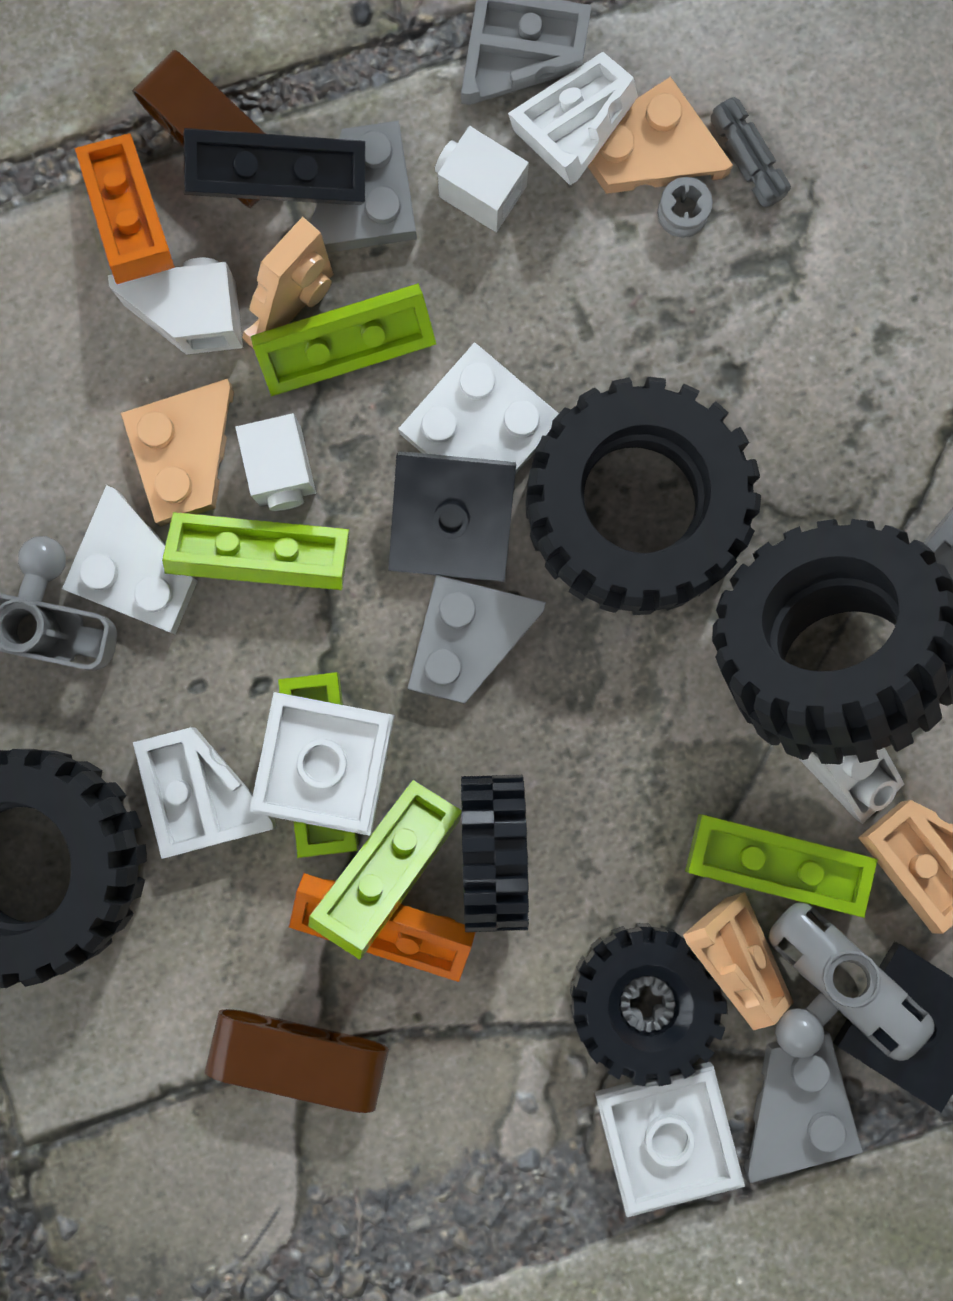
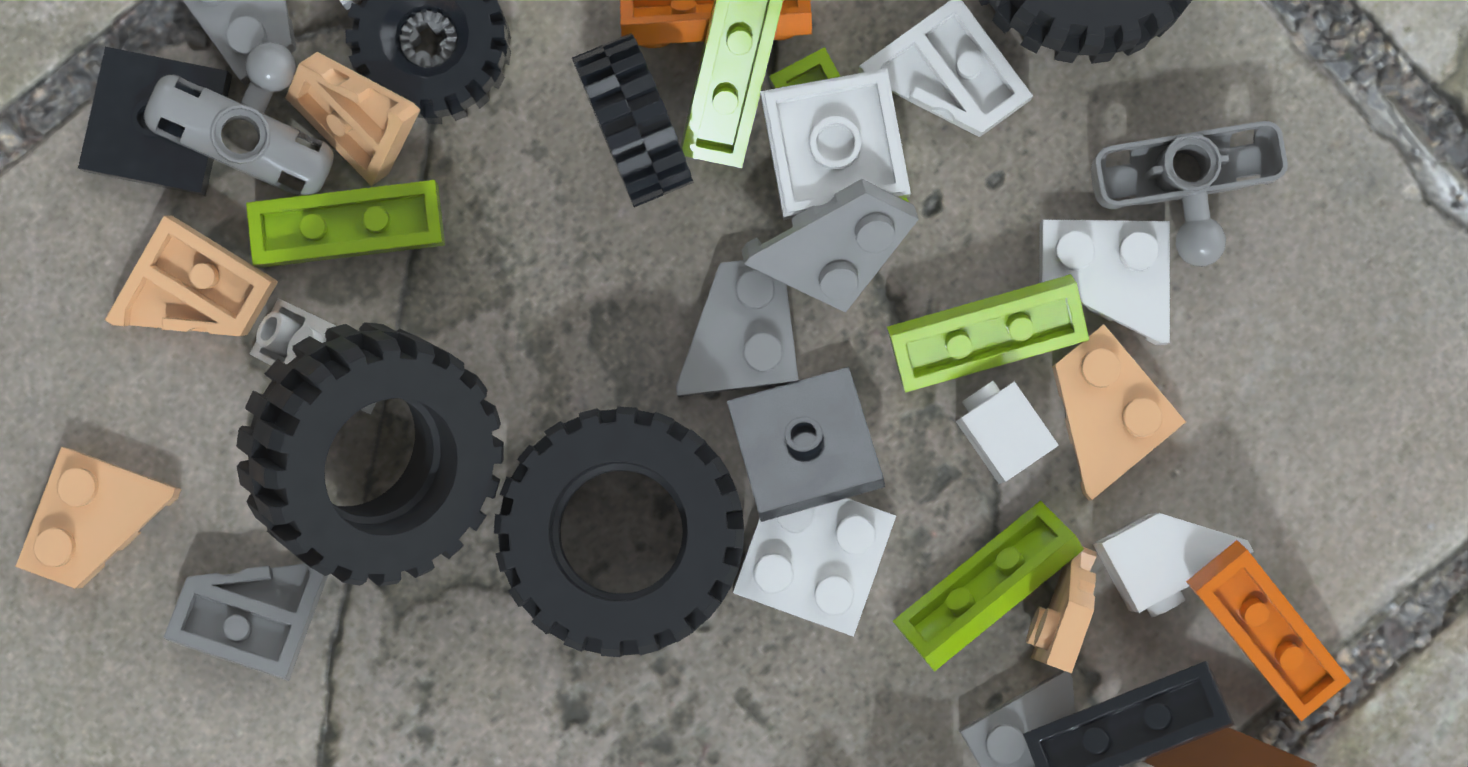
camera: 165 degrees right, 0 degrees up
(356, 674) = (836, 245): none -> light grey wing

